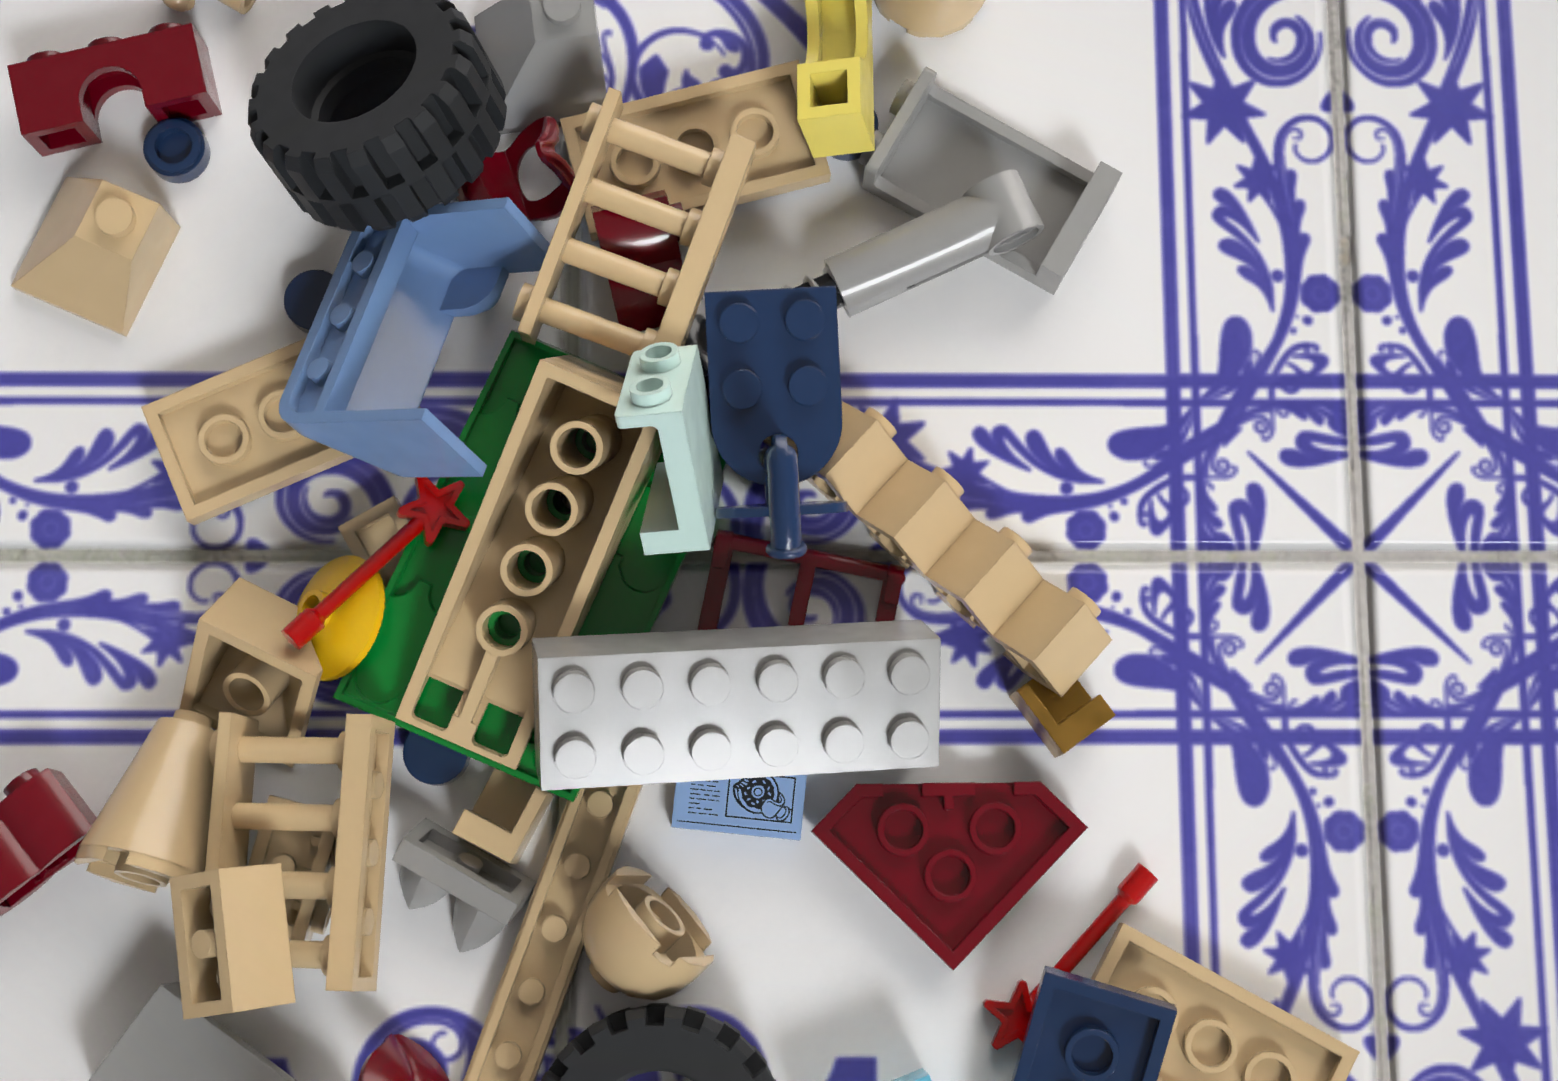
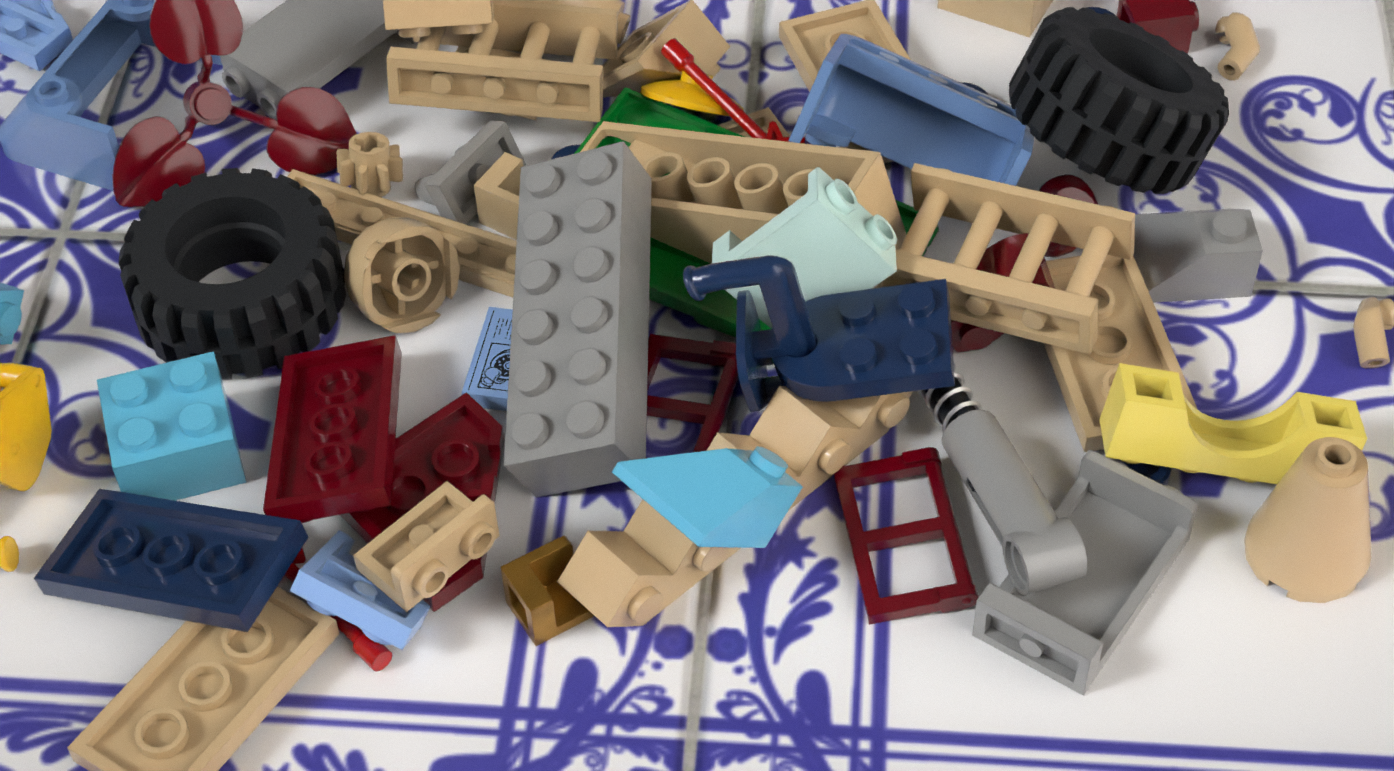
camera: 100 degrees right, 30 degrees down
(436, 1000) = (370, 164): none -> tan gear
(885, 967) = (335, 431): none -> dark red plate
(938, 316) = (943, 598): none -> dark red window
(987, 537) = (716, 494): none -> medium azure slope
(1048, 831) = (429, 545): none -> tan bracket
(1085, 904) = (338, 589): none -> light blue wing

